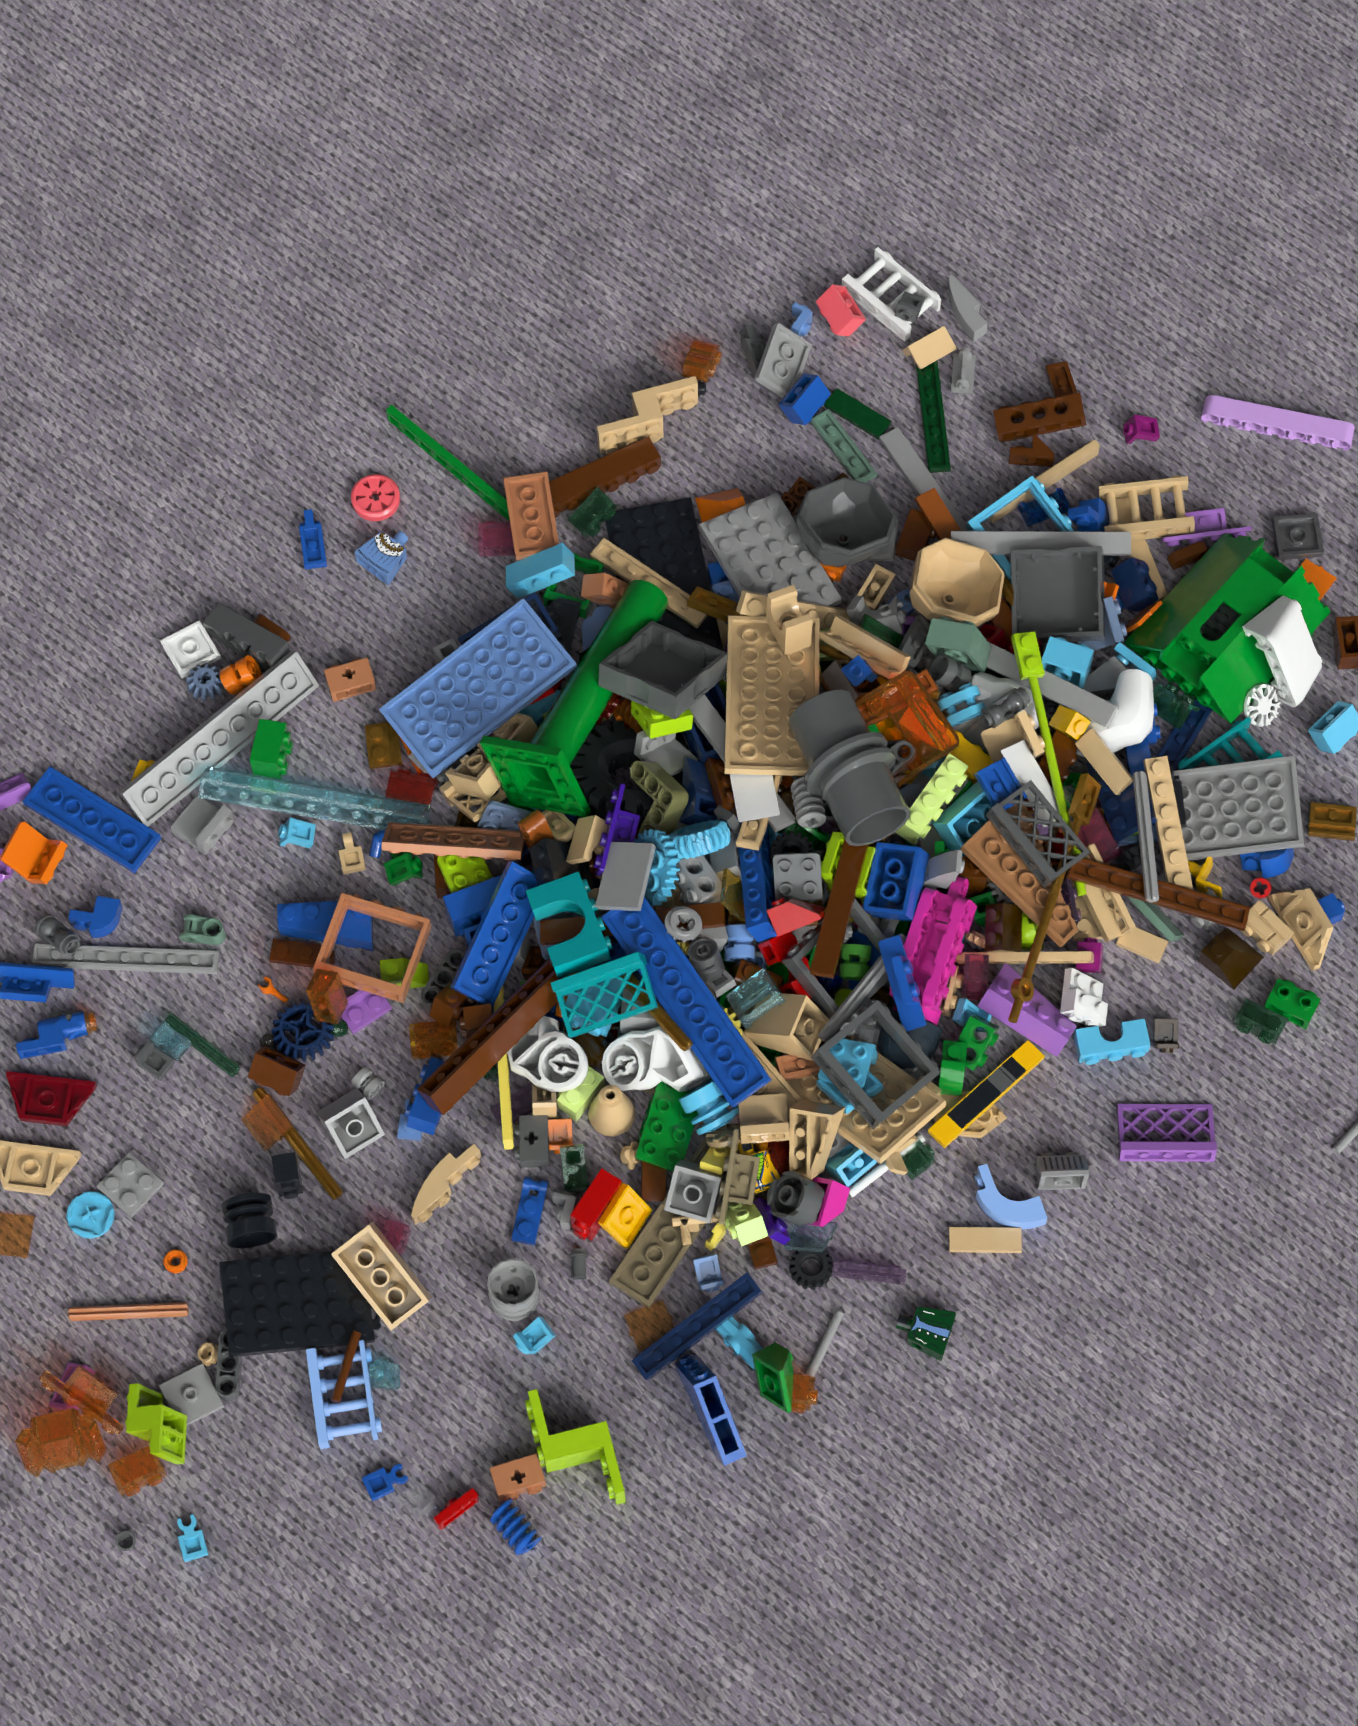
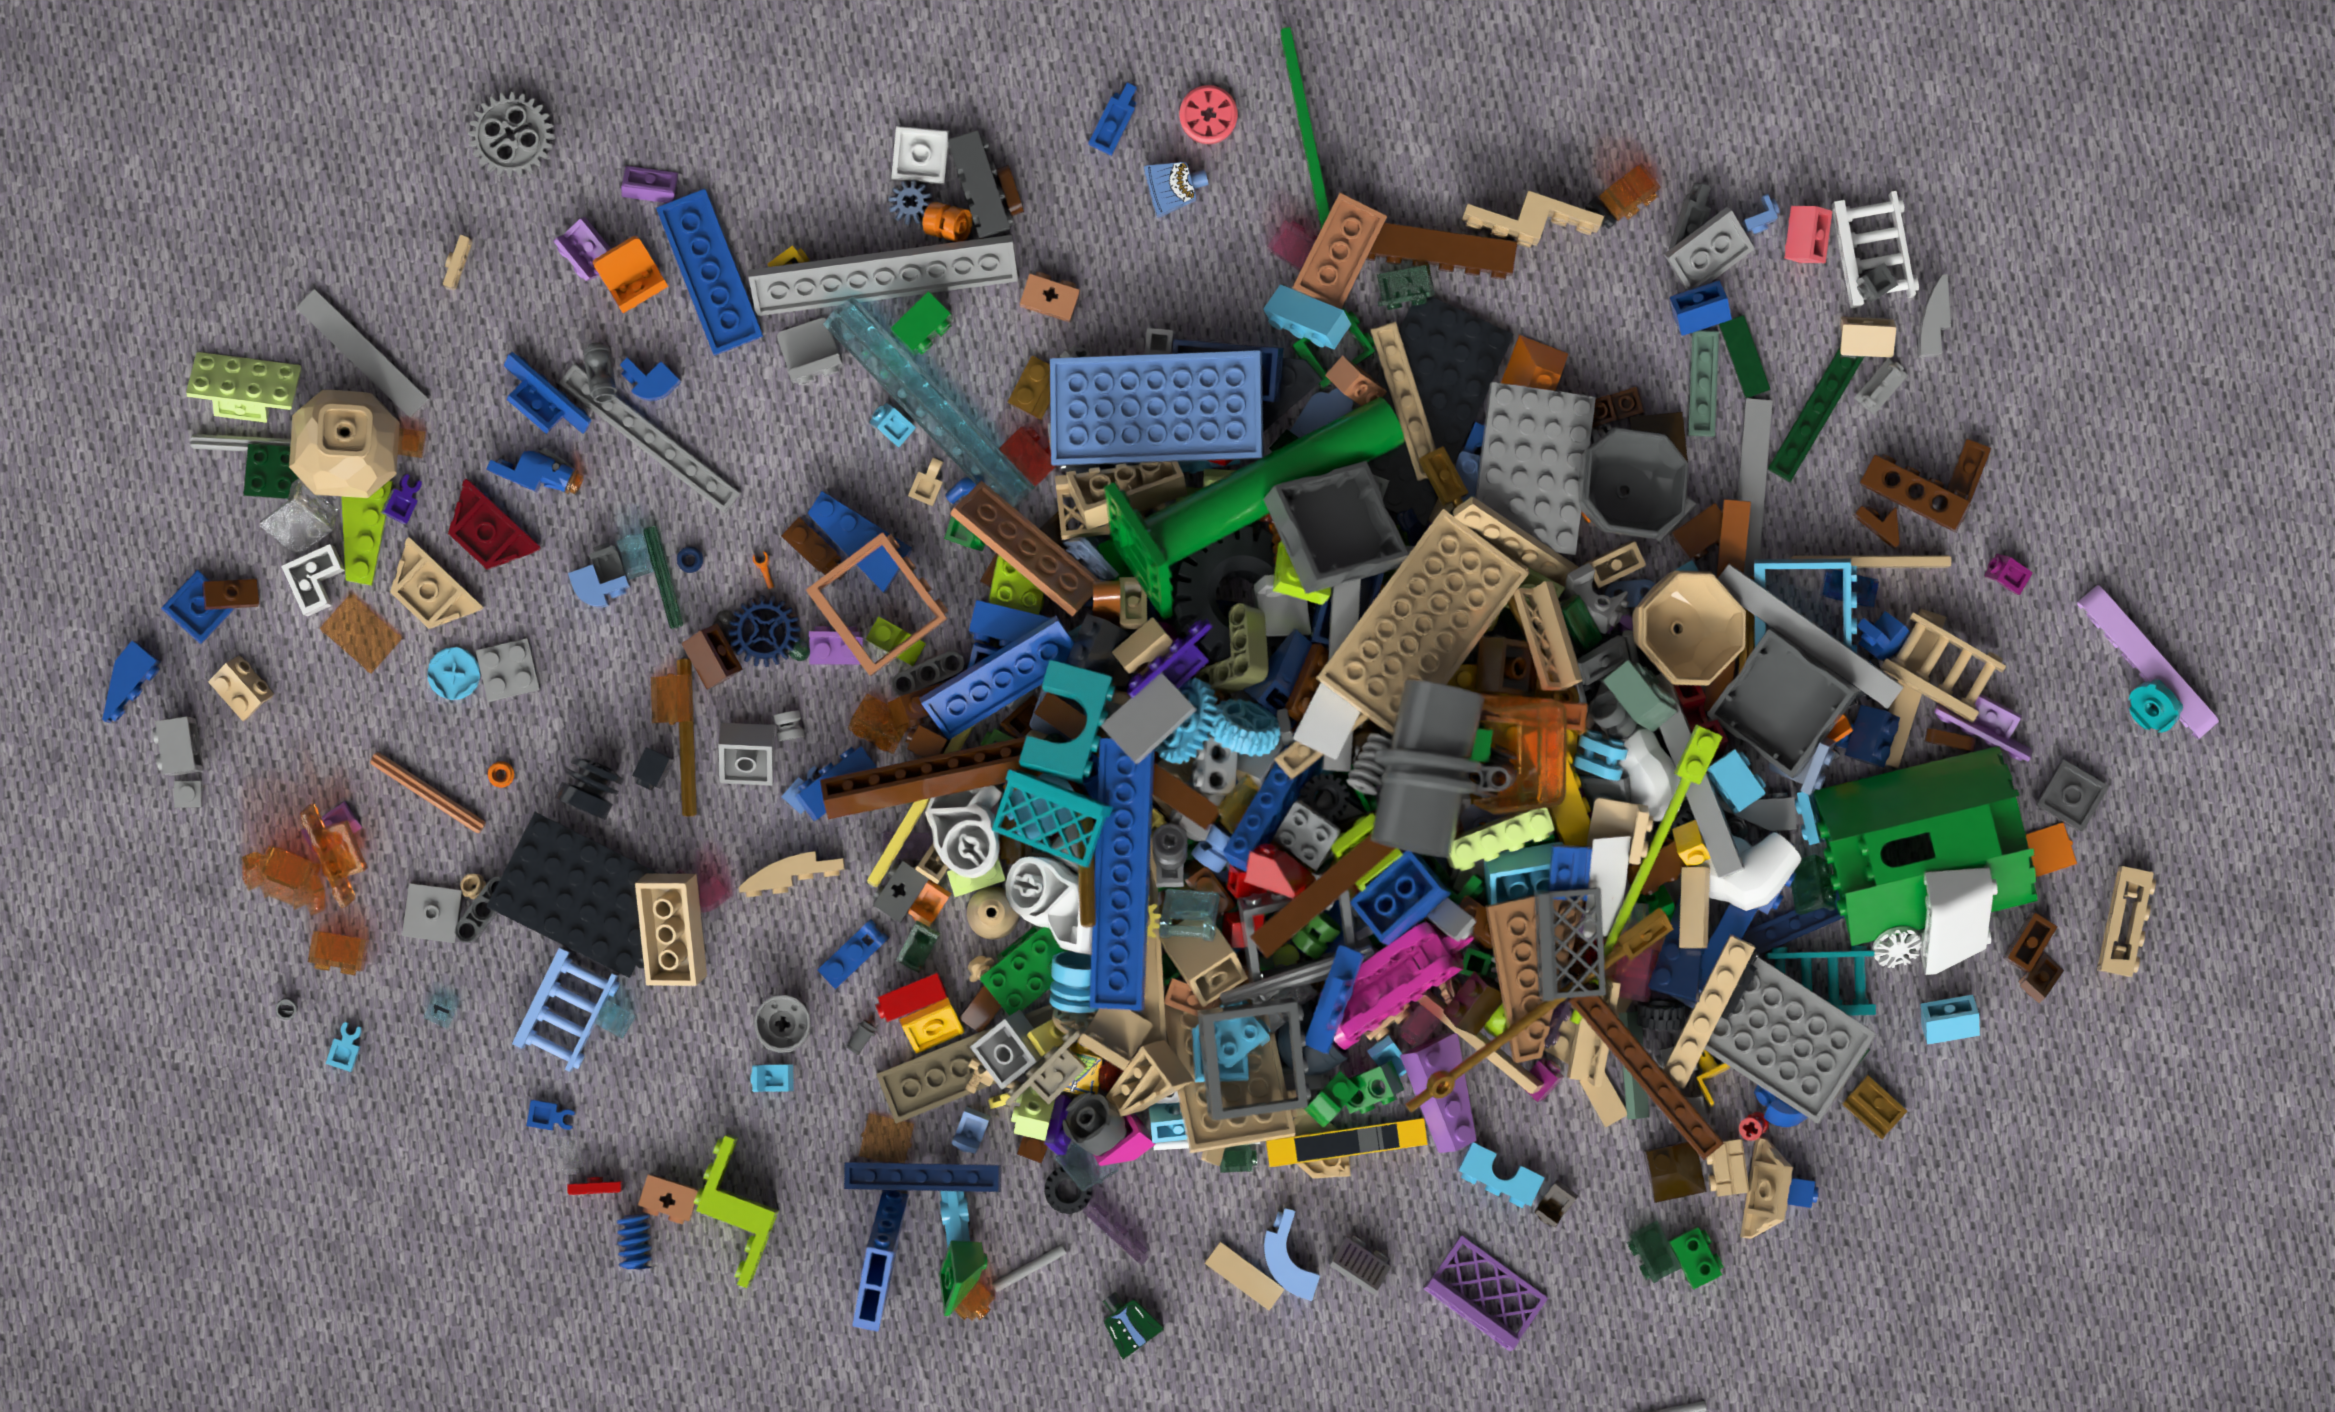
camera: 30 degrees right, 20 degrees up
(154, 1086) = (591, 591): none -> medium blue brick
(156, 1423) = (375, 918): lime bracket -> none
(198, 930) = (735, 458): sand green piece -> none
(210, 1014) = (682, 556): none -> dark blue plate
(247, 1462) = (441, 1011): none -> clear light blue tile
(327, 996) = (801, 624): clear orange brick -> none
(345, 1367) = (583, 989): reddish brown bar -> none
(569, 1201) = (882, 981): light grey bracket -> none
(684, 915) = (1176, 796): light grey gear -> none
(786, 621) = (1494, 548): tan piece -> none
(858, 671) = (1518, 666): blue bracket -> none
(1013, 701) = (1646, 792): dark grey piece -> none
(1083, 999) = (1502, 1118): white plate -> none
(1142, 616) = (1850, 776): orange piece -> none
(1145, 836) = (1672, 1013): light grey axle -> none
(1305, 430) = (2155, 693): none -> teal plate

